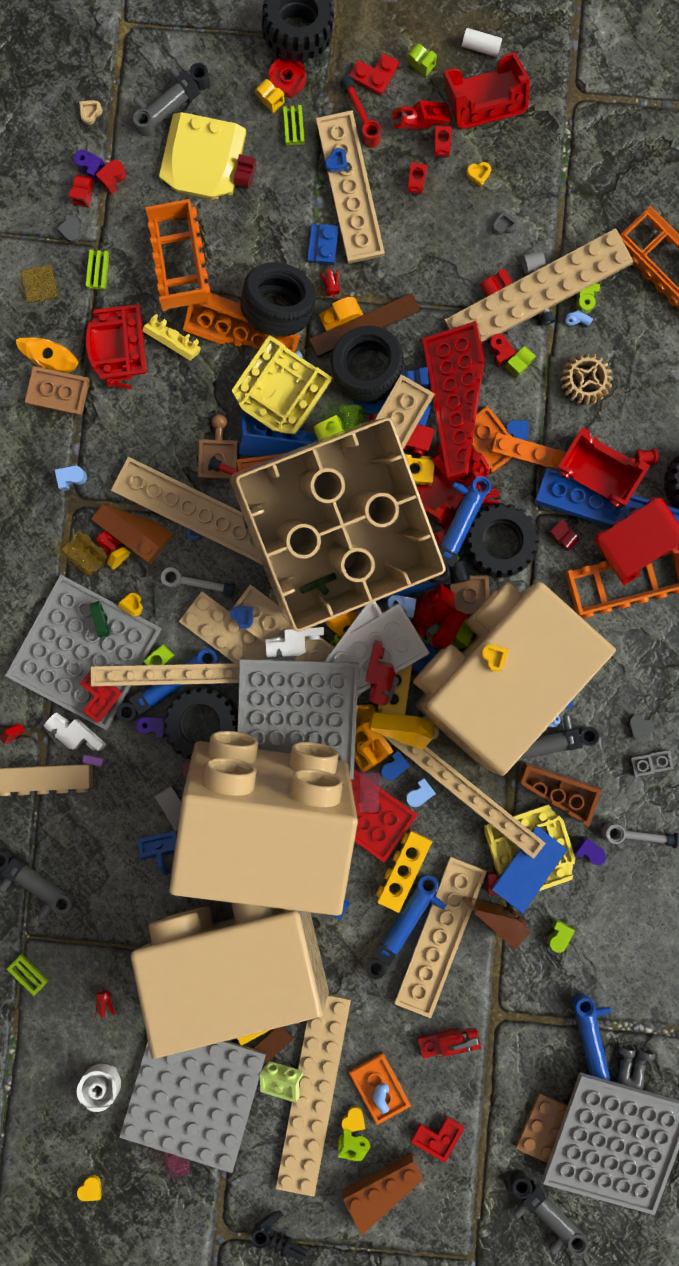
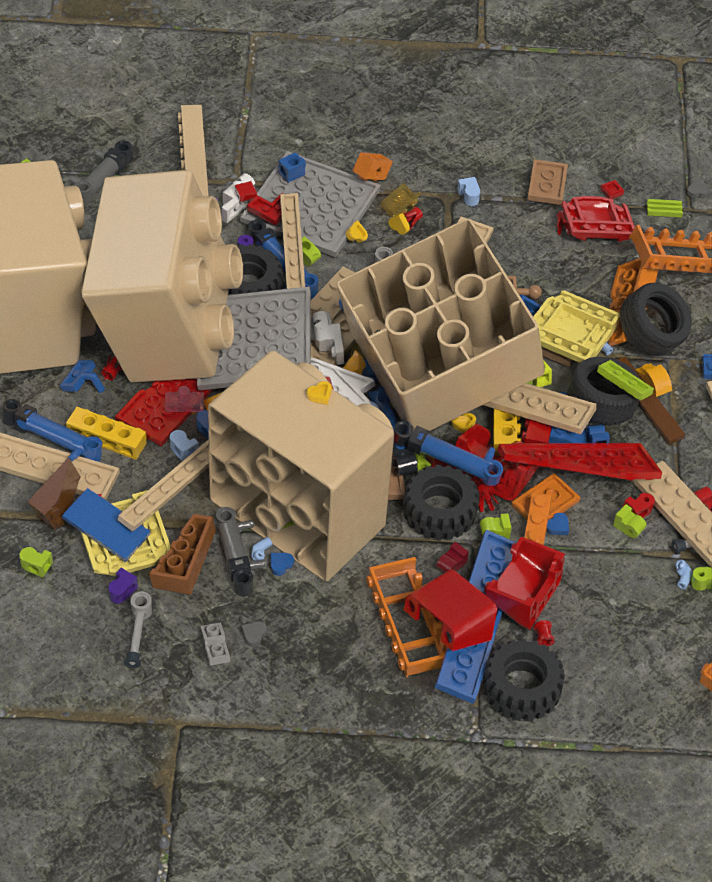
camera: 85 degrees right, 35 degrees down
(12, 733) = (235, 157): red tile -> none
(38, 581) = (372, 166): none -> orange brick
(39, 283) = (644, 171): clear yellow piece -> none
(45, 675) = (291, 167): none -> blue brick
(61, 360) = (580, 184): light orange piece -> none
(67, 322) = (612, 189): none -> red tile
(76, 724) = (245, 191): none -> red tile
(99, 619) = (341, 206): dark green beam -> none
(137, 533) = (421, 228): dark orange wedge -> none
(172, 338) = (608, 256): light yellow plate -> none
(331, 284) = (683, 371): red piece -> none
(352, 415) = (552, 383): clear neon green leg -> none
(374, 340) = (625, 380): none -> lime plate
(525, 490) = (497, 525): none -> lime leg
(592, 383) = (624, 577): tan gear -> none

